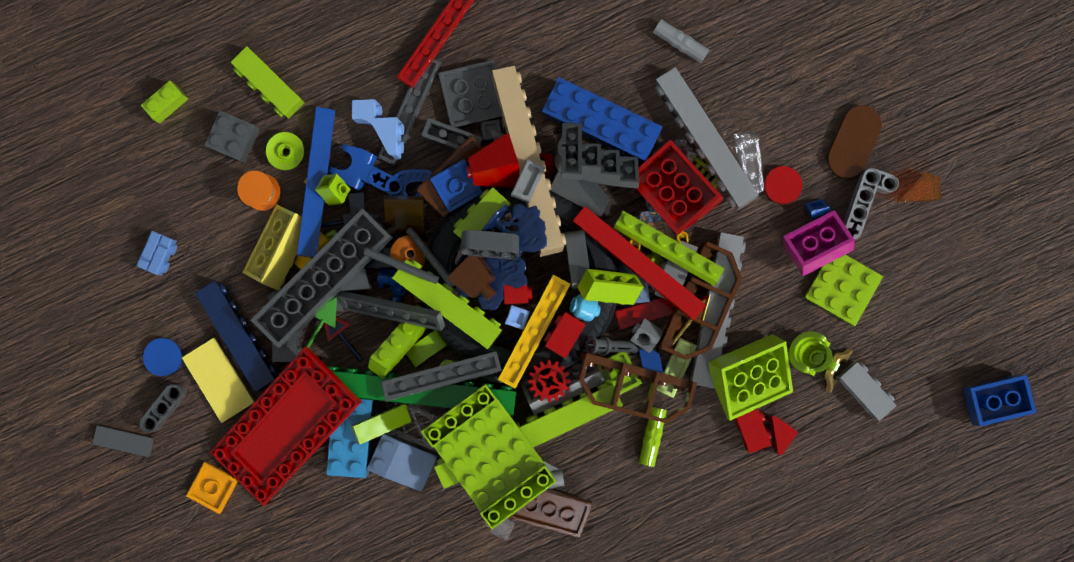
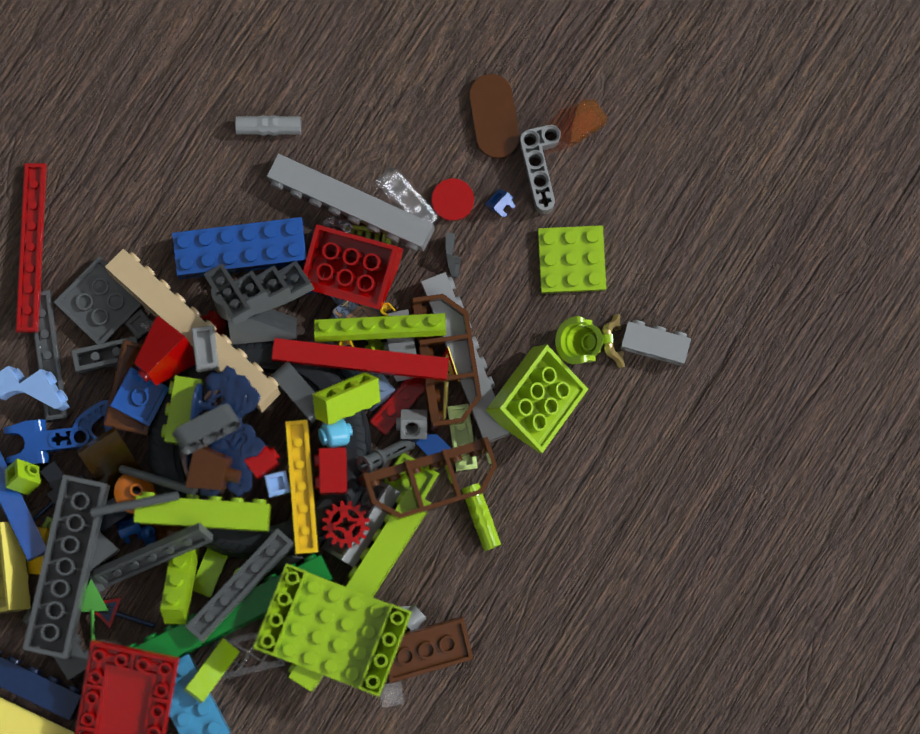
camera: 35 degrees left, 5 degrees down
(402, 462) = (256, 697): sand blue slope -> none
(753, 231) = (452, 261): none -> dark grey slope
(753, 431) = (572, 449): red brick -> none
(781, 434) = (602, 435): red slope -> none
(818, 243) = (519, 233): dark pink brick -> none
(999, 400) = (784, 271): blue brick -> none

